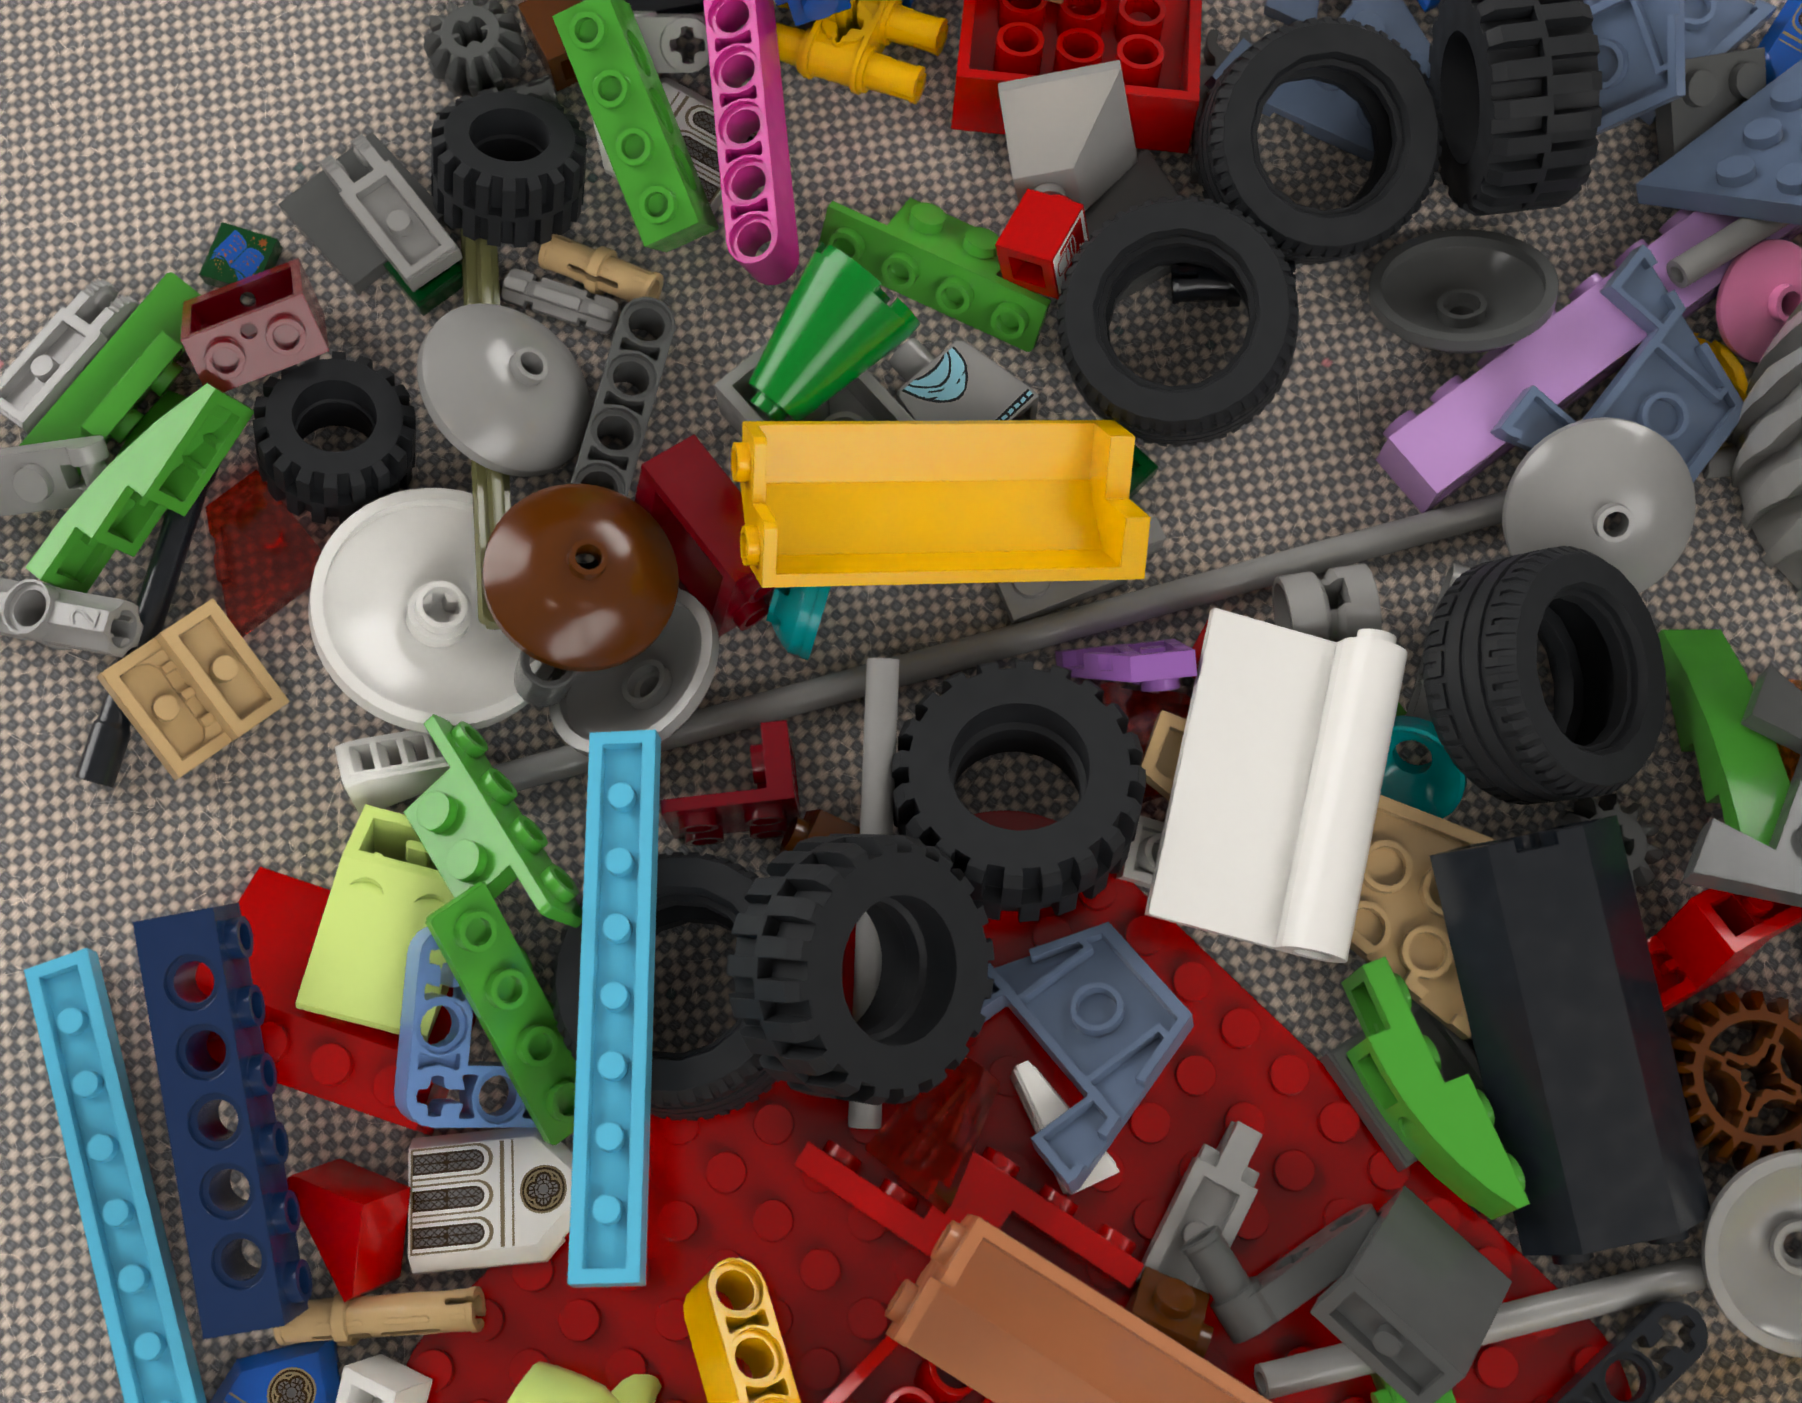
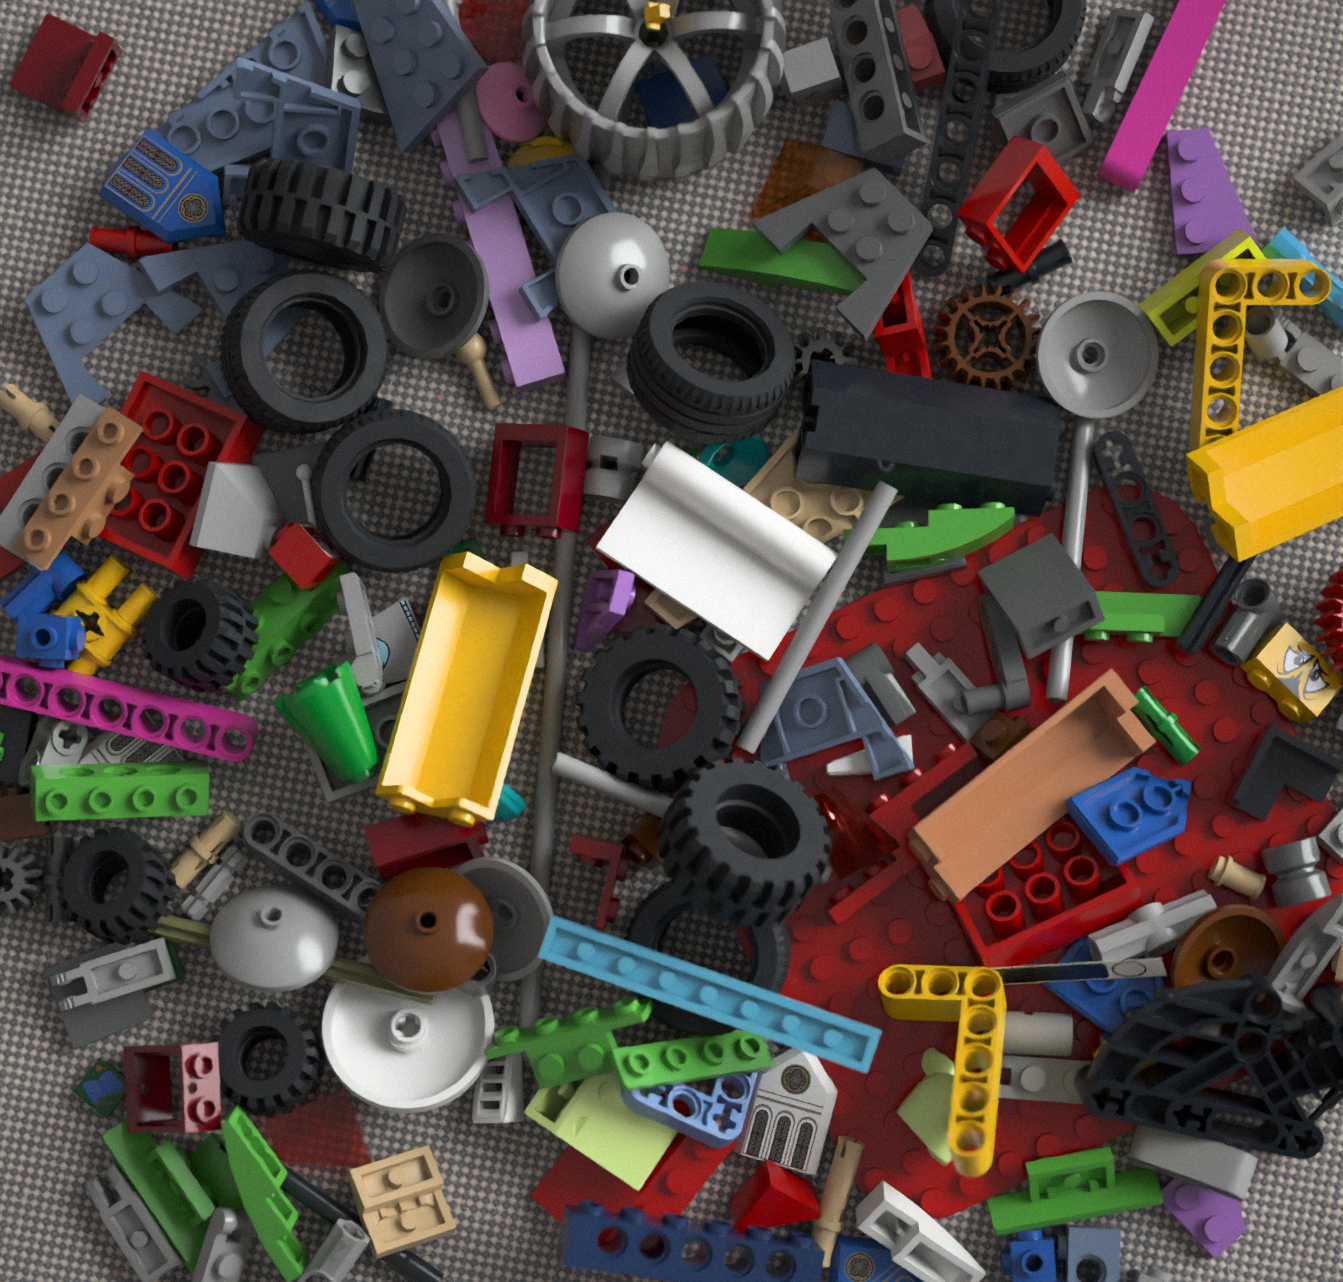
camera: 70 degrees left, 10 degrees up
(883, 152) = (177, 622): none -> black tyre
(963, 346) = (361, 638): none -> light grey hinge
(1179, 1094) = (876, 678): none -> dark grey piece
(1245, 964) = (816, 617): none -> light grey piece
(1282, 546) = (567, 482): none -> dark red window
(1407, 372) = (473, 355): none -> tan bar

